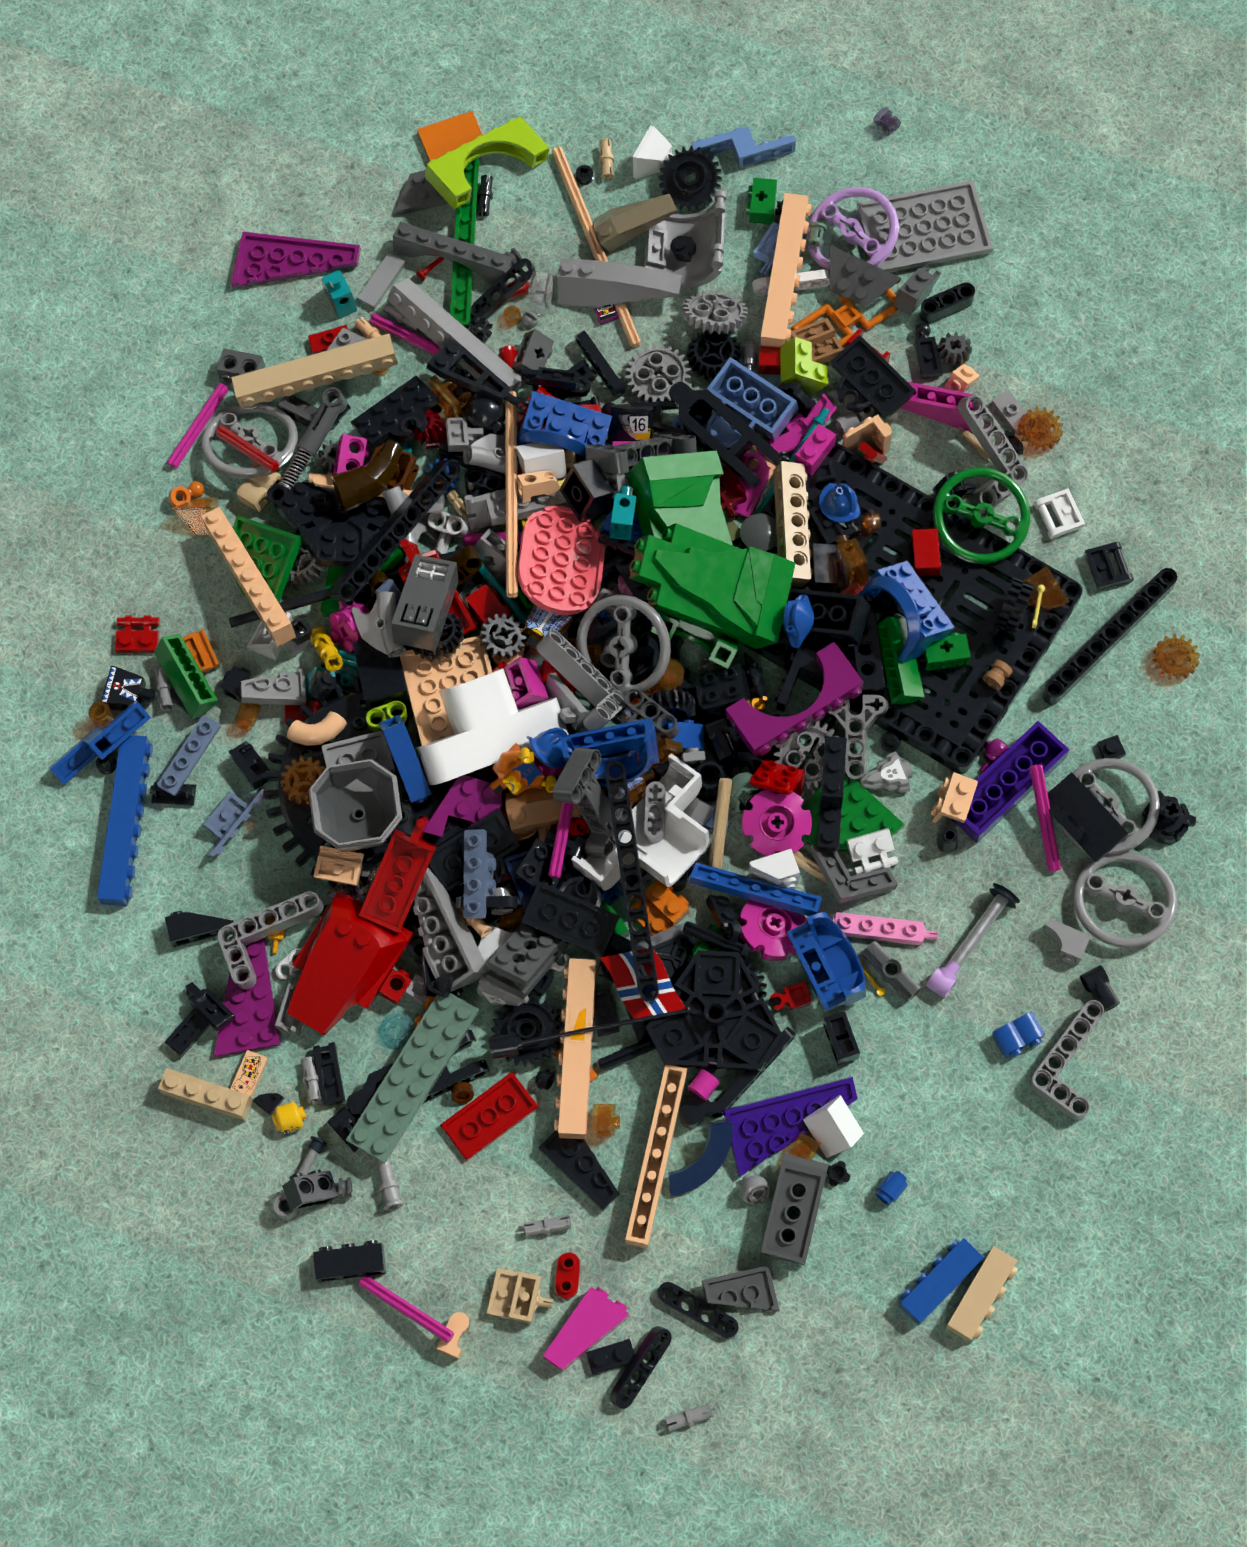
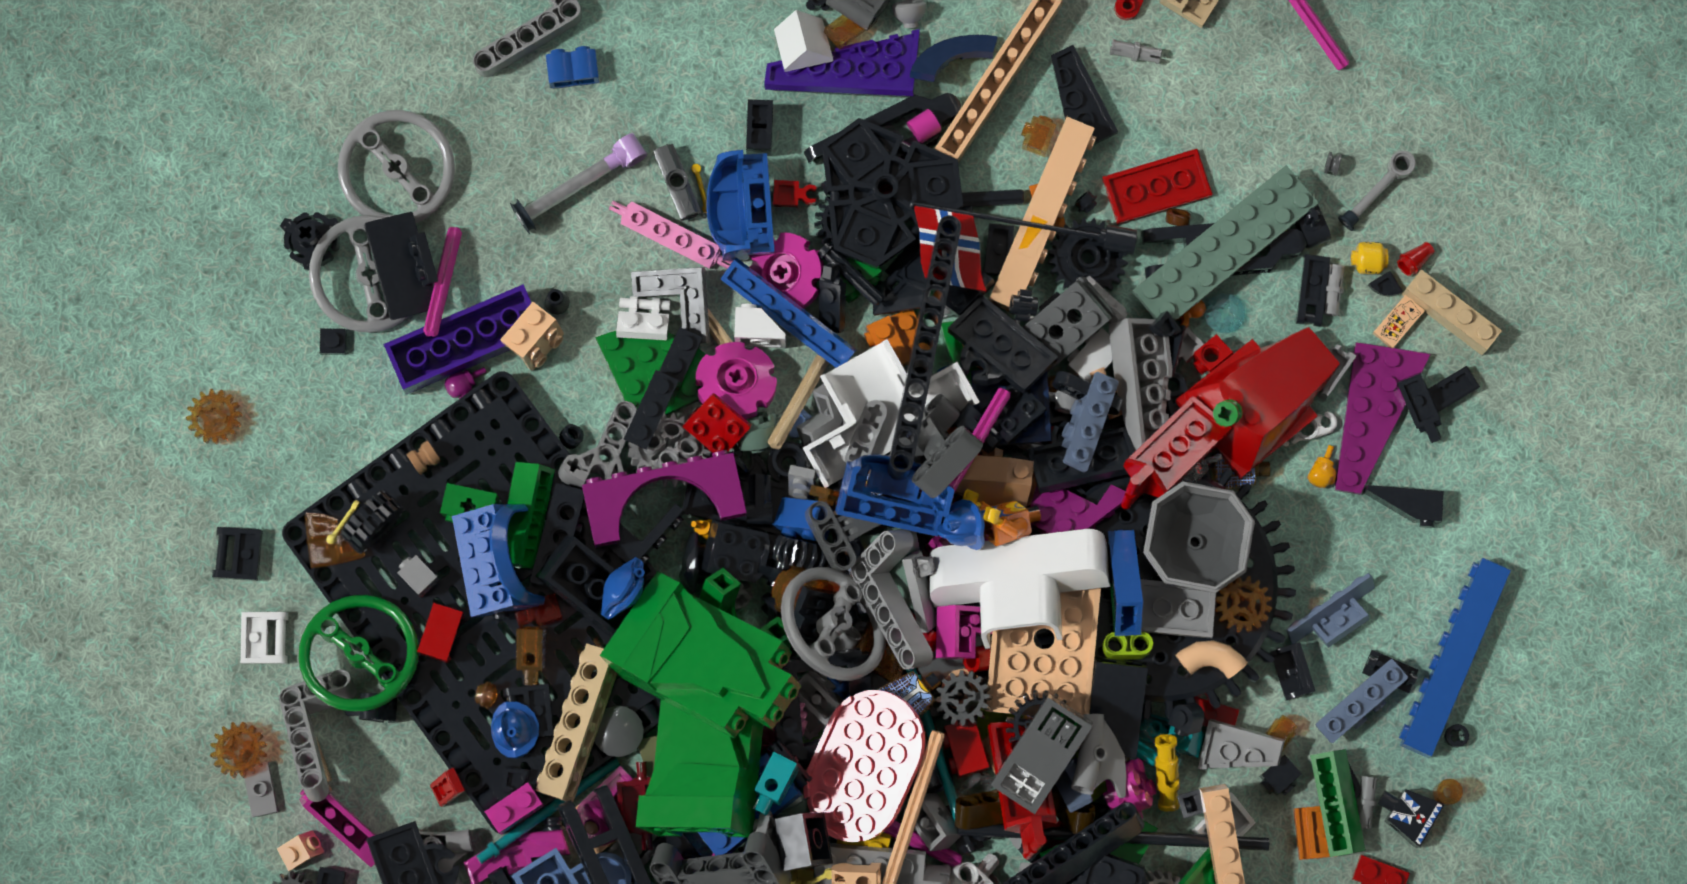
camera: 165 degrees left, 10 degrees up
(99, 742) = (1458, 755): blue bracket -> none
(250, 1131) = (1414, 259): none -> red cone
(262, 930) = (1339, 466): light grey beam -> none
(310, 1190) = (1371, 163): black brick -> none
(338, 866) = (1247, 492): light nougat plate -> none
(349, 1261) = (1352, 86): black brick -> none
(365, 920) = (1232, 410): none -> green wheel
(389, 1186) = (1287, 145): light grey pin -> none
(564, 958) = (1023, 305): none -> black gear
(824, 567) = (563, 658): black hinge -> none
(870, 429) = (427, 807): light nougat bracket -> none
(889, 774) = (588, 398): light grey rock -> none
(962, 587) = (417, 575): none -> light grey brick
(1015, 442) = (277, 748): black tile -> none
(1069, 940) = (474, 143): light grey arch -> none
(1098, 984) = (466, 92): black piece -> none
(1106, 644) = (263, 466): black beam -> none

